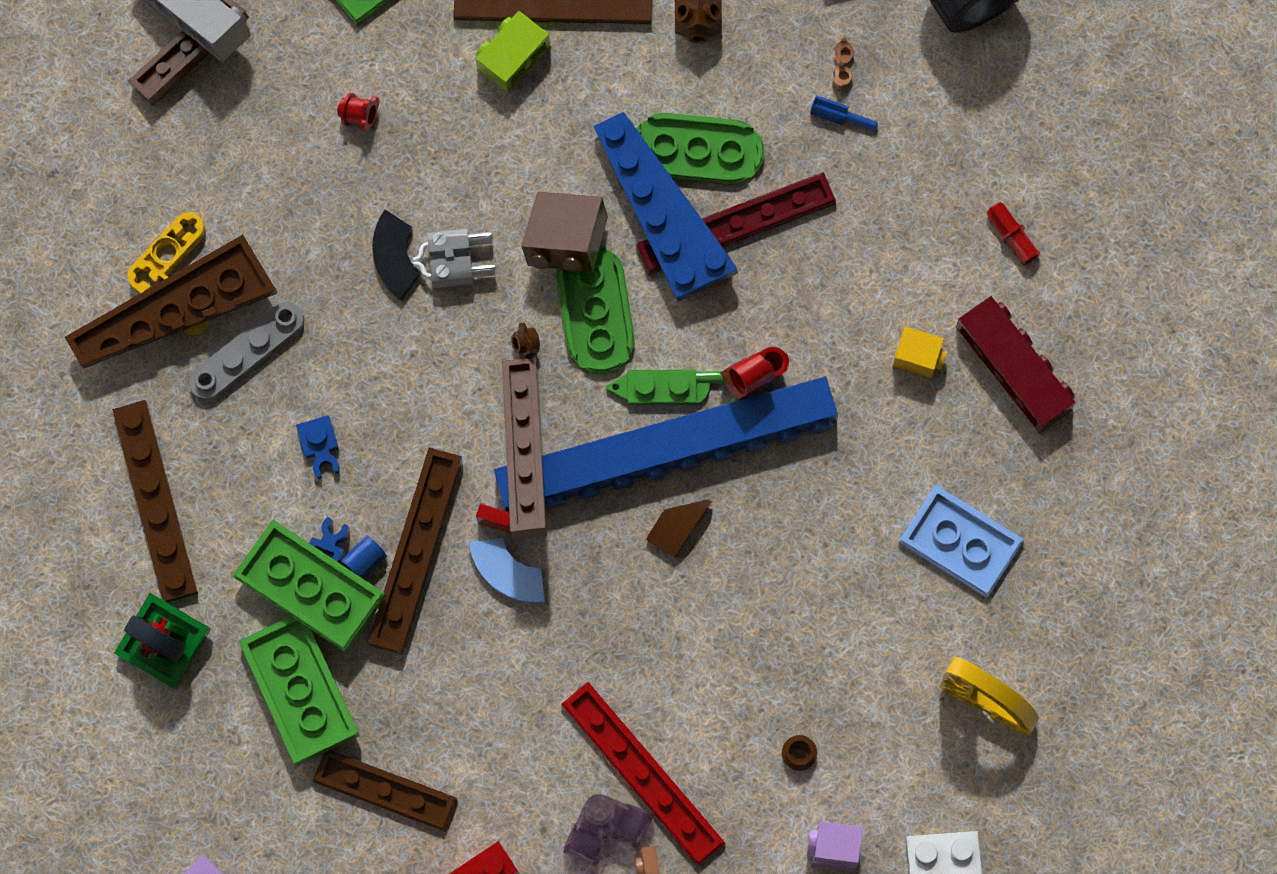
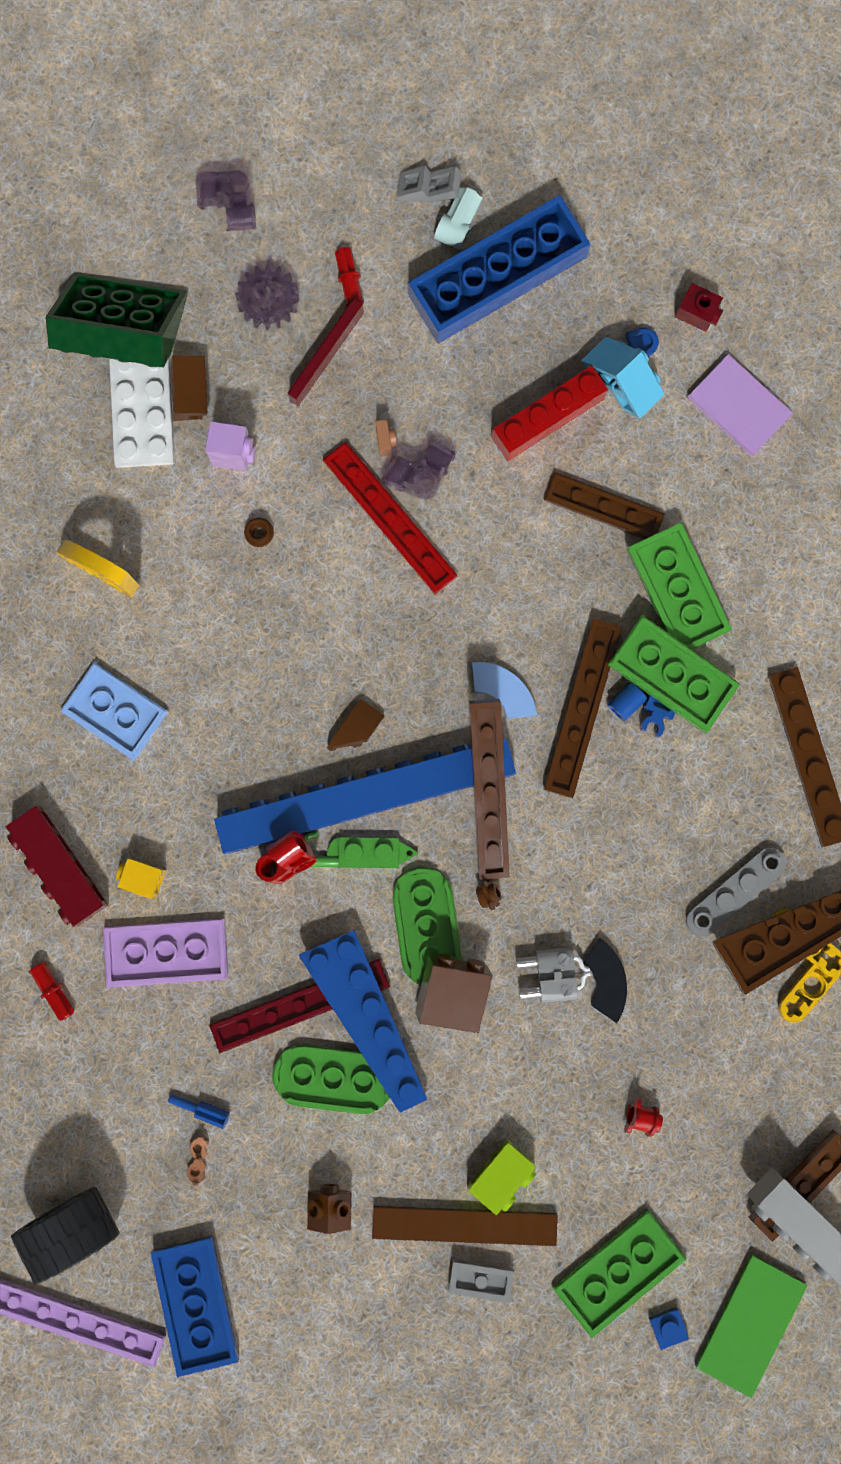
camera: 175 degrees right, 10 degrees up
(162, 640) = (796, 632): green plate -> none
(319, 440) = (669, 809): blue plate -> none
(493, 518) = (515, 733): red tile -> none
(888, 277) = (165, 952): none -> lavender tile

